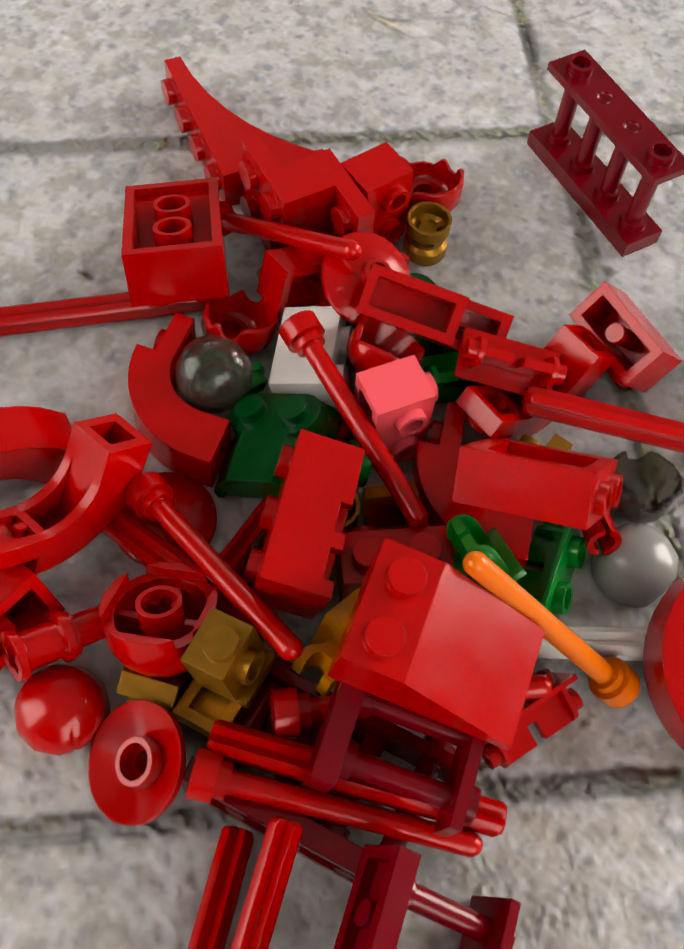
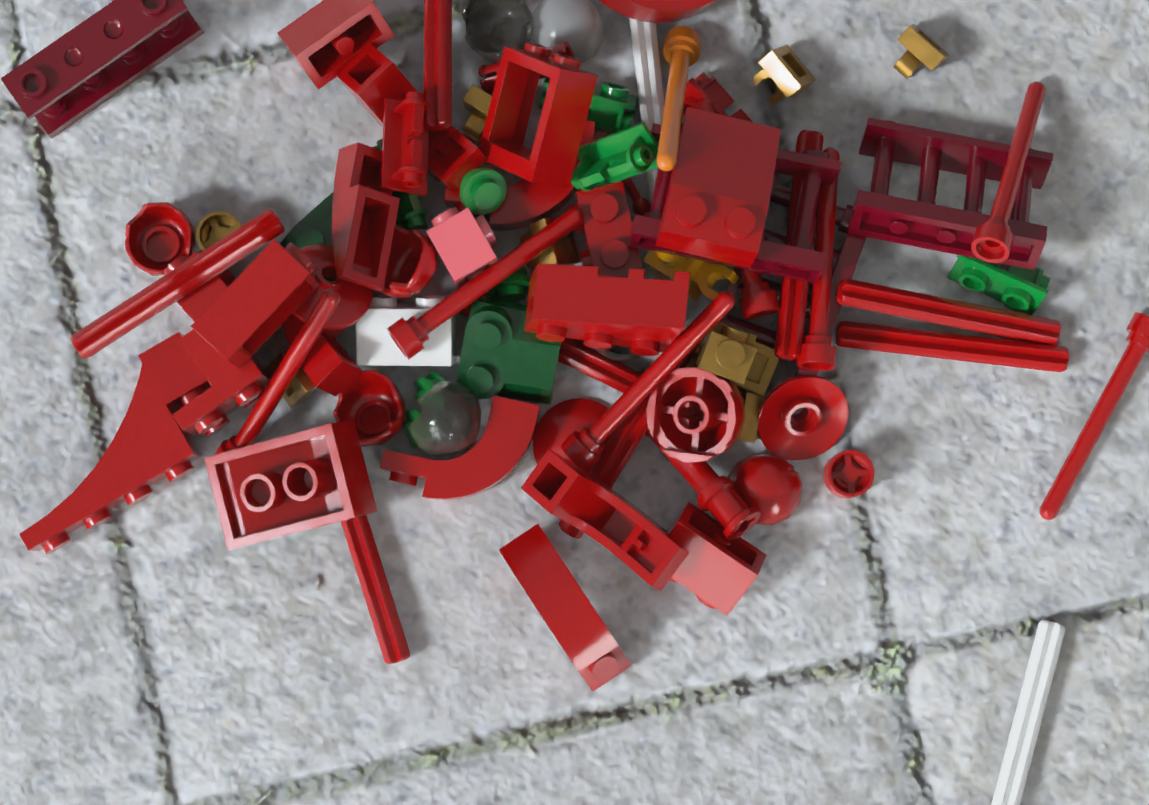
camera: 90 degrees left, 25 degrees up
(42, 805) = (856, 473): none -> red wheel
(343, 136) = (257, 302): none -> red window
(386, 150) = (177, 283): none -> red axle
(454, 425) = (483, 190): none -> green plate
(582, 804) = (786, 71): none -> pearl gold tile

